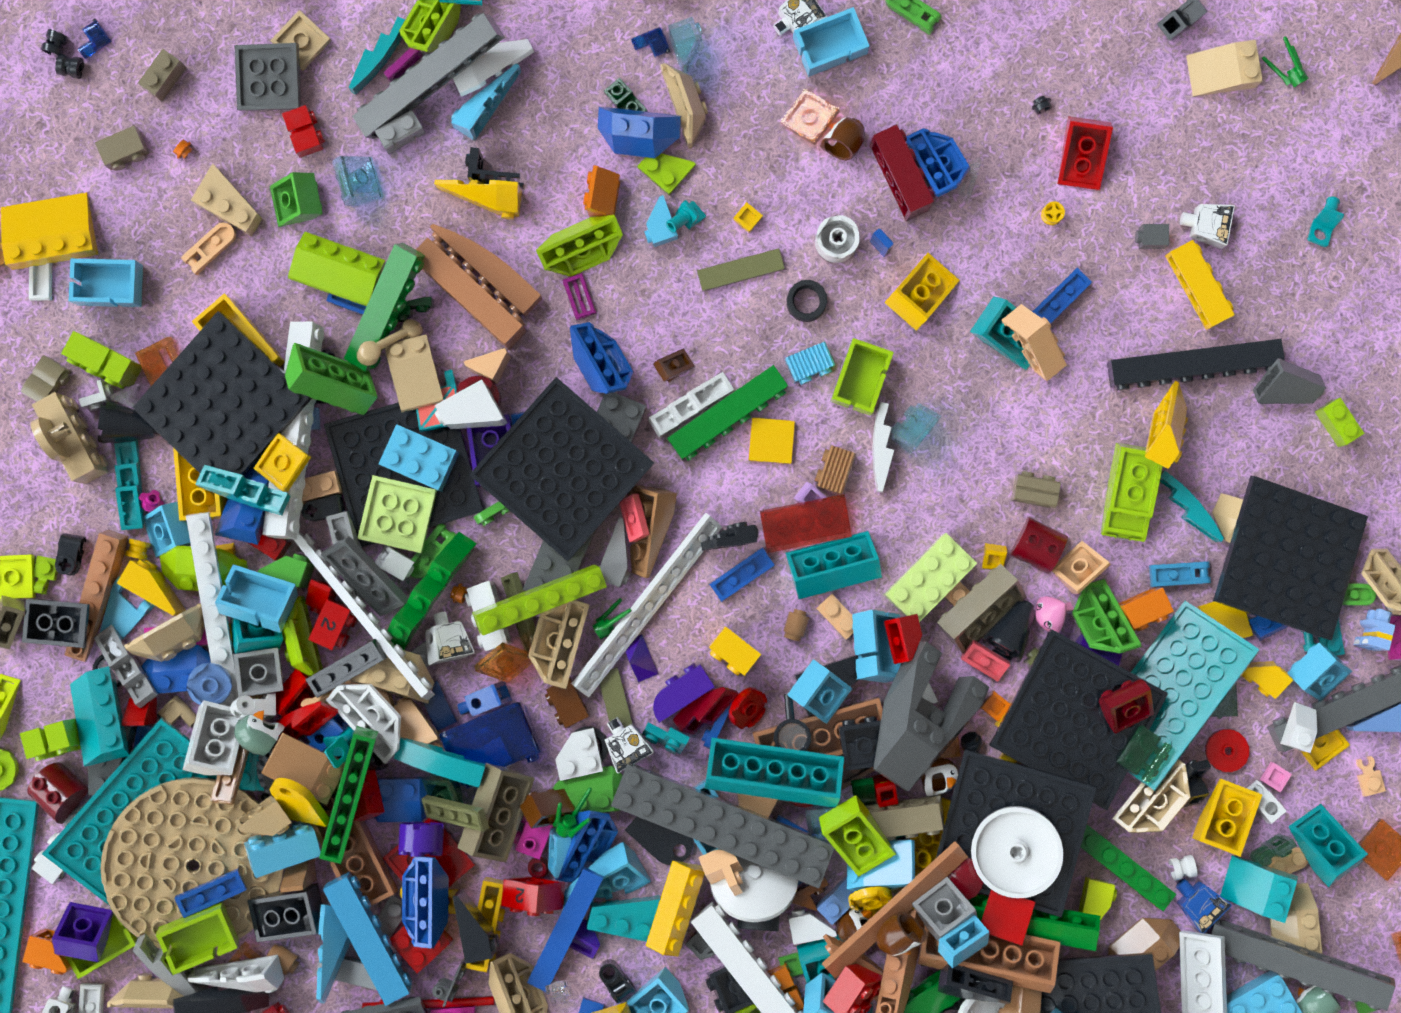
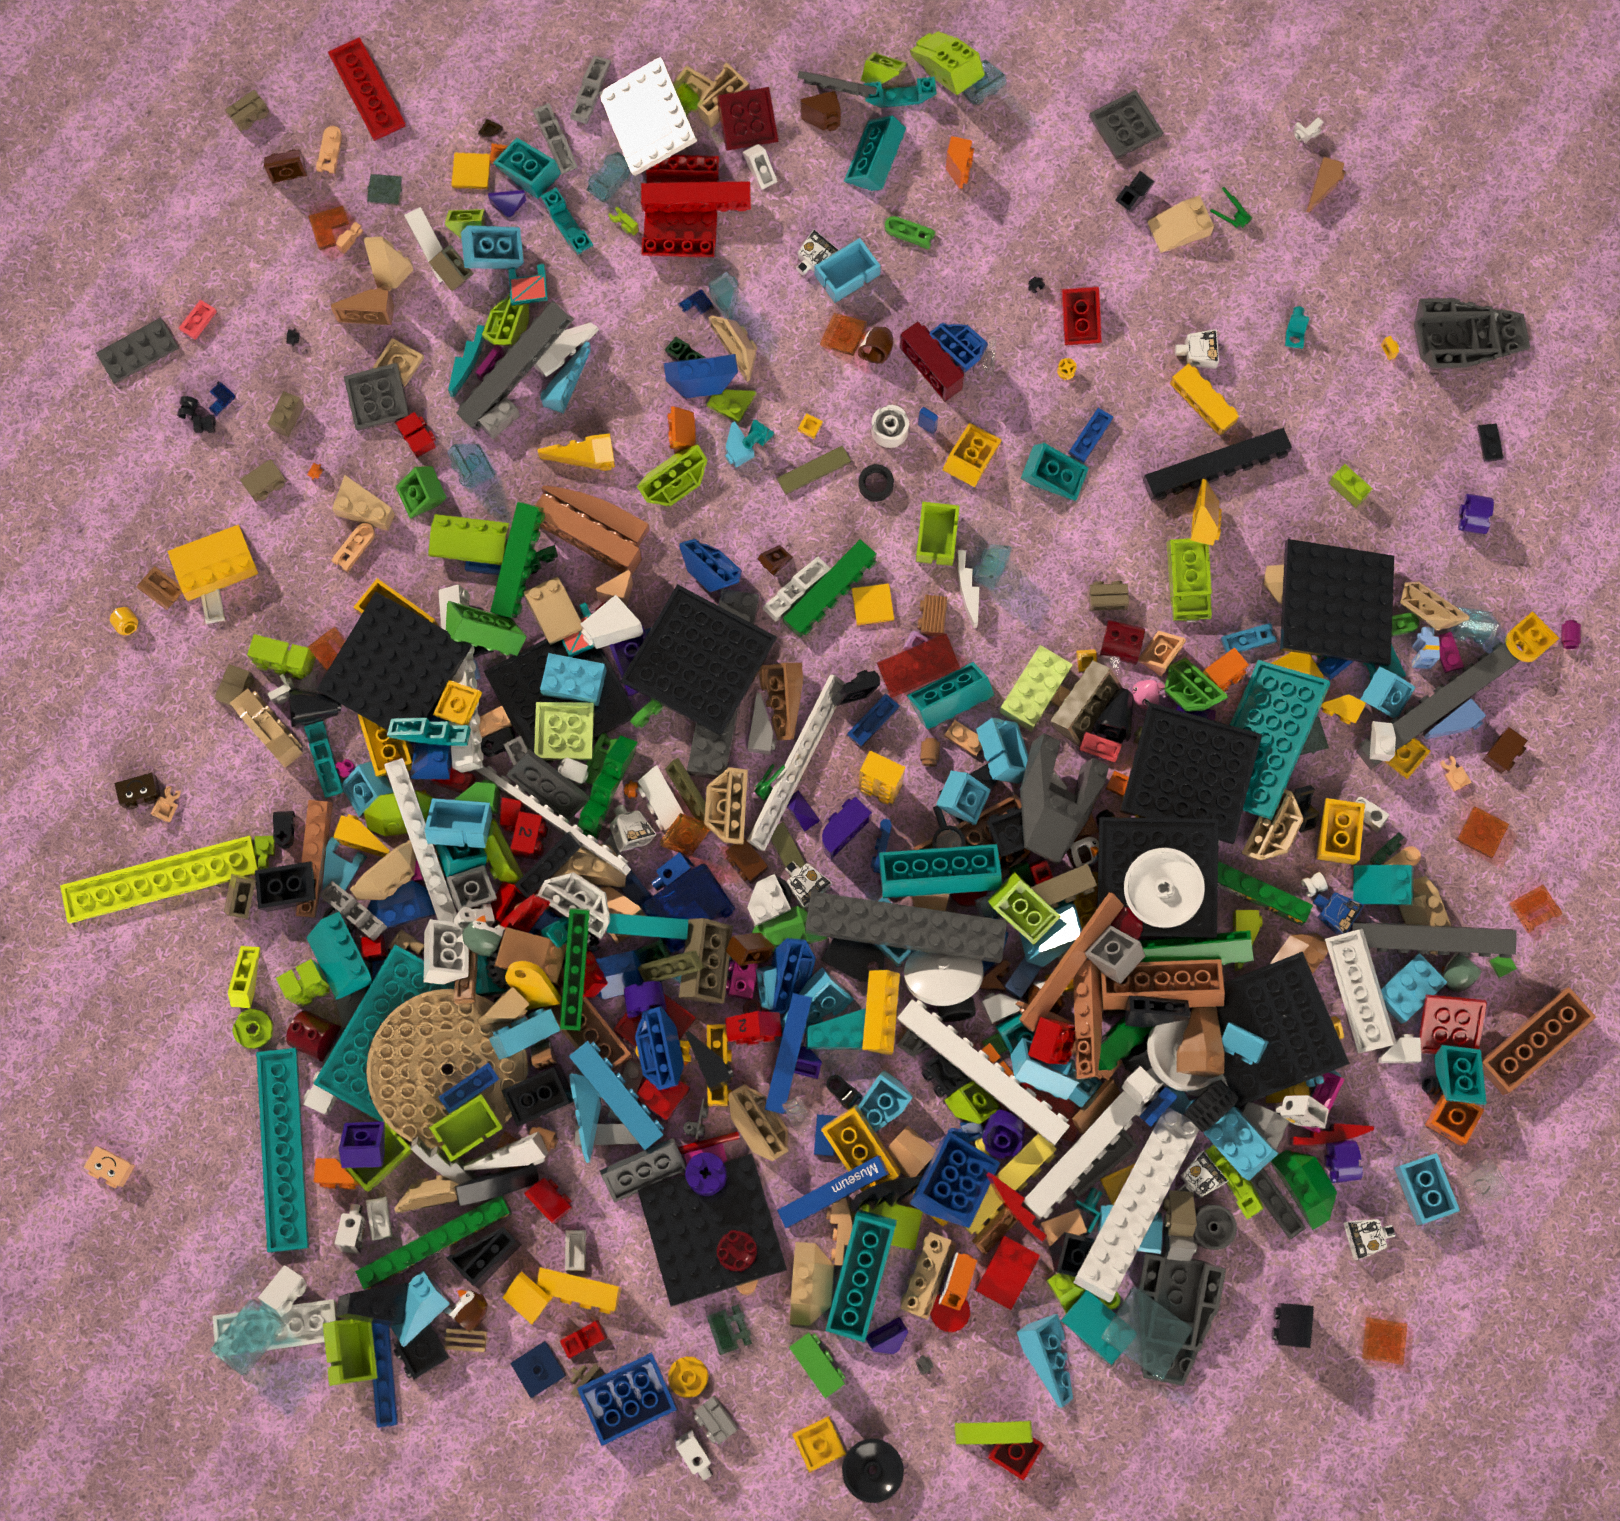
camera: 10 degrees left, 10 degrees down
(106, 282) = (271, 593): medium azure piece -> none
(137, 549) = (342, 808): yellow wheel -> none
(209, 683) = (430, 905): medium blue tile -> none
(370, 351) = (513, 597): tan piece -> none
(474, 162) = (571, 434): black plate -> none
(539, 599) = (703, 770): lime brick -> none
(566, 825) = (770, 958): green plant -> none
(585, 313) = (688, 533): magenta tile -> none
(634, 518) = (769, 690): coral plate -> none
(672, 740) = (845, 871): teal plate -> none
(704, 709) = (867, 836): dark red slope -> none
(721, 865) = (912, 963): light nougat brick -> none
(747, 708) = (904, 829): red plate -> none
(810, 363) = (890, 533): medium azure brick -> none
(870, 898) = (1046, 962): yellow tile -> none
(894, 934) = (1079, 978): reddish brown piece -> none
(903, 637) = (1024, 735): red slope -> none
(963, 941) = (1136, 972): medium azure brick -> none
(1007, 917) = (1169, 947): red tile -> none
(1037, 340) = (1079, 471): light nougat wedge -> none
(1127, 705) = (1228, 748): dark red brick -> none
(1139, 750) = (1248, 787): clear green plate -> none
(1152, 236) = (1155, 369): dark grey brick -> none
(1194, 511) = (1248, 585): teal slope -> none
(1216, 747) = (1317, 779): red plate -> none
(1275, 777) = (1374, 791): bright pink plate -> none
(1288, 385) = (1299, 463): dark grey slope -> none
(1327, 845) = (1433, 838): teal slope -> none

